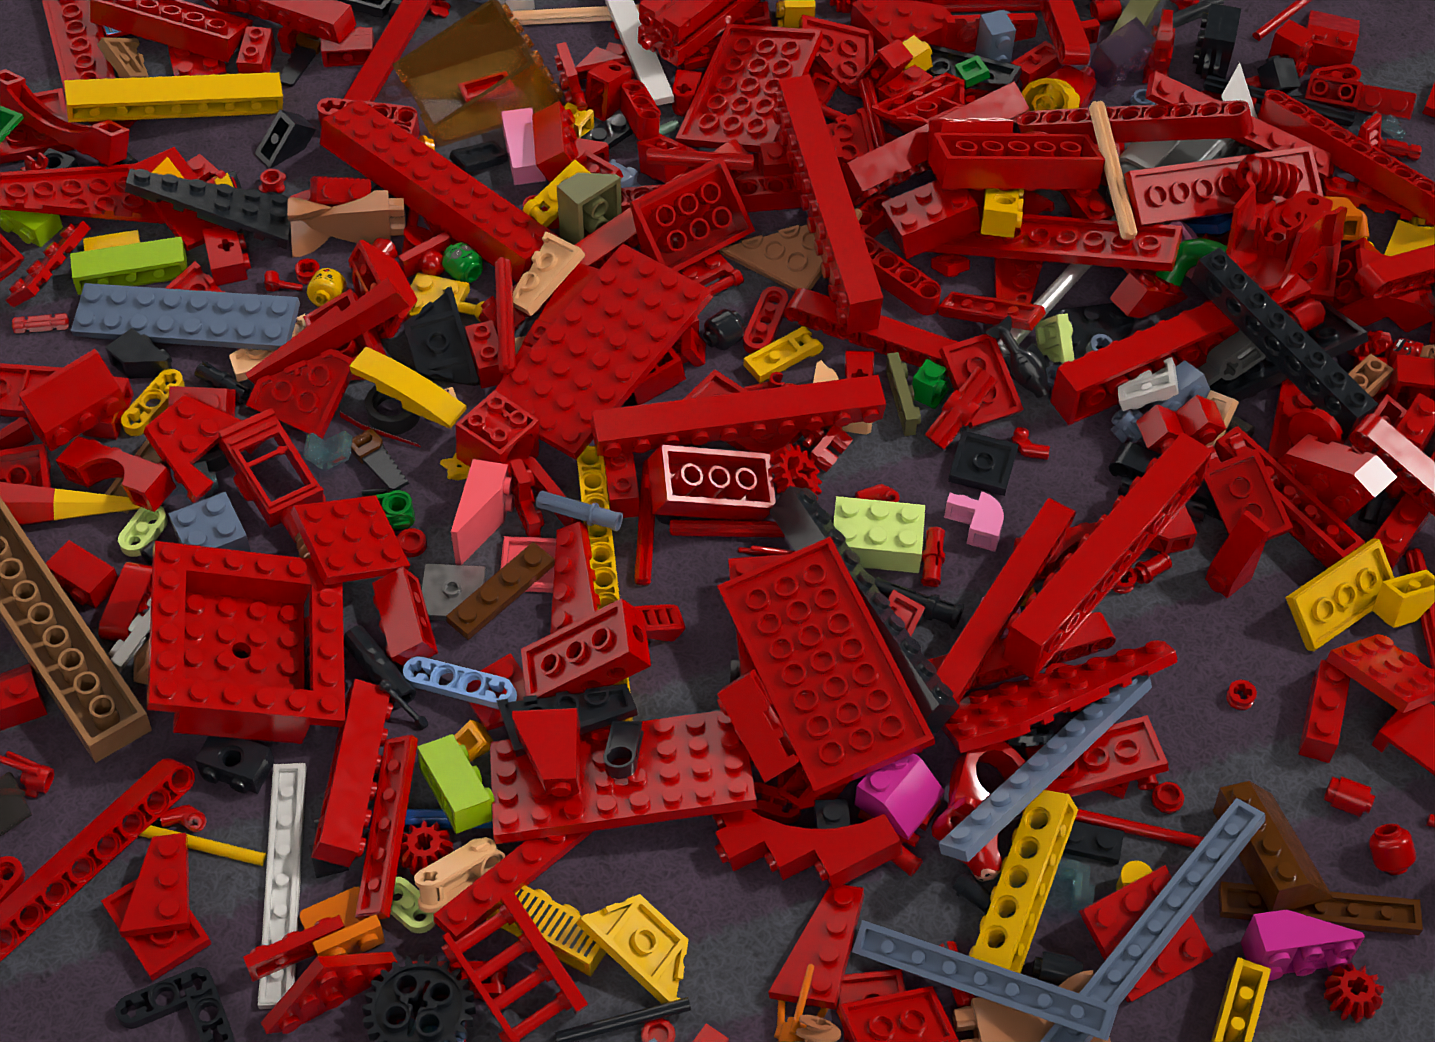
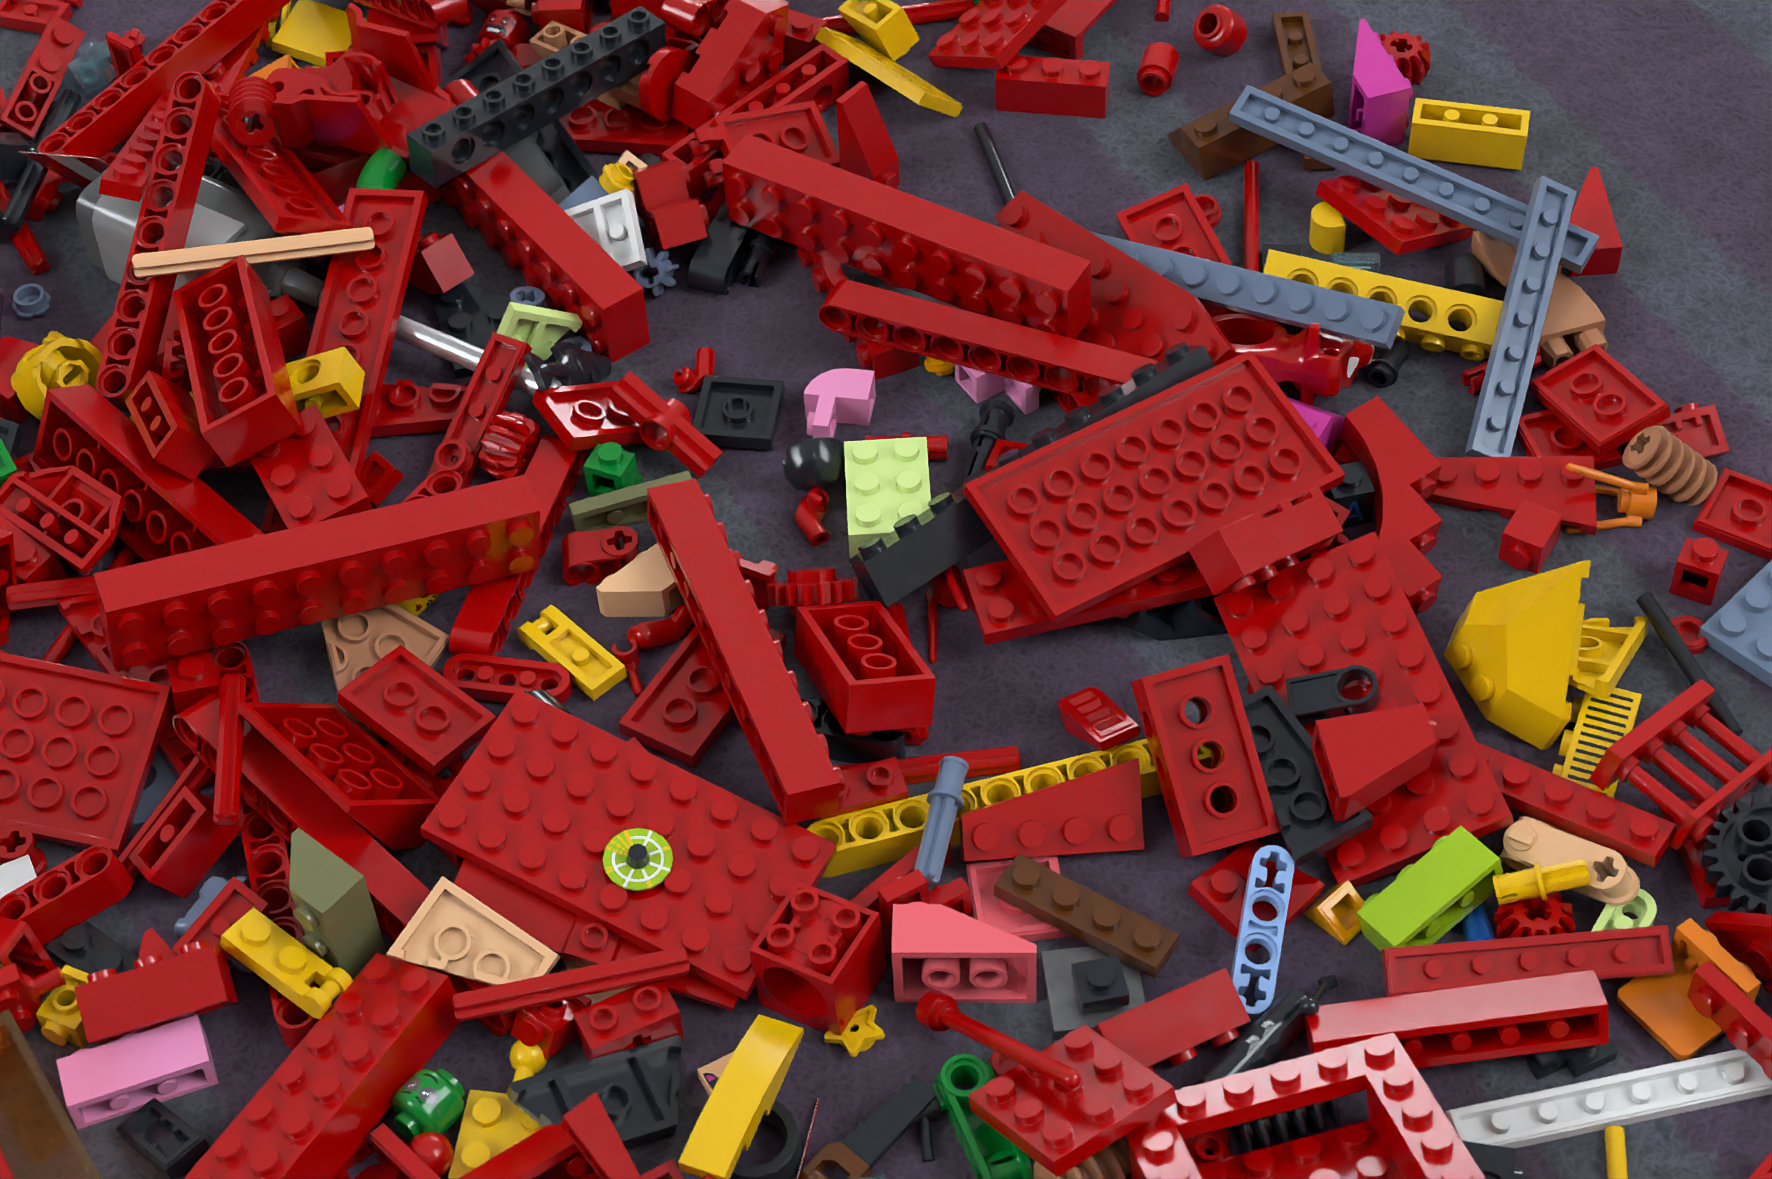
camera: 95 degrees left, 5 degrees down
(434, 837) = (1540, 881): none -> yellow axle
(443, 585) = (1100, 984): none -> black plate
(448, 507) = (941, 1014): none -> red piece
(577, 346) = (637, 859): none -> lime piece
(641, 877) = (1519, 650): none -> yellow wedge
(738, 265) = (416, 710): none -> red plate
(768, 941) = (1530, 536): none -> red brick
(912, 490) = (814, 463): none -> black hair
(951, 296) = (448, 451): none -> red plate
(959, 323) = (509, 445): none -> red gear
(1194, 381) = (617, 178): none -> yellow plate
(1228, 664) = (994, 162): none -> black bar
(1248, 690) = (1041, 152): red bush -> none

